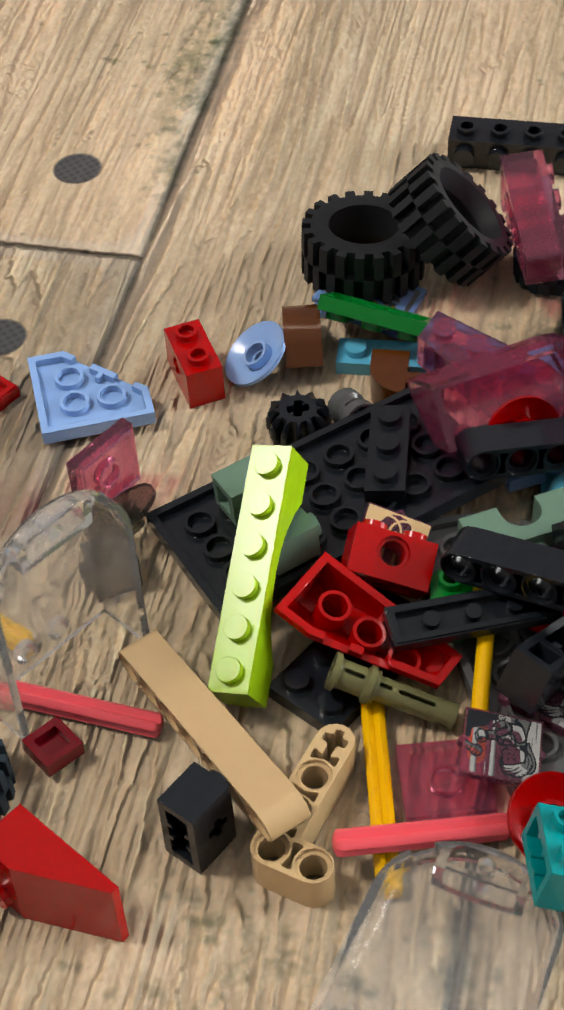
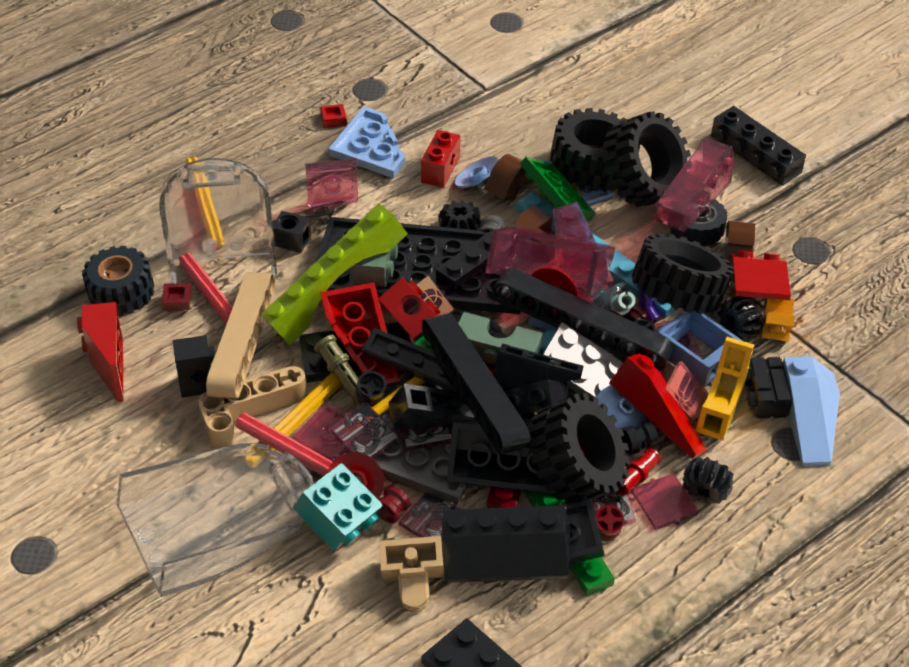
camera: 35 degrees right, 0 degrees up
(453, 688) = (371, 383): none -> black wheel

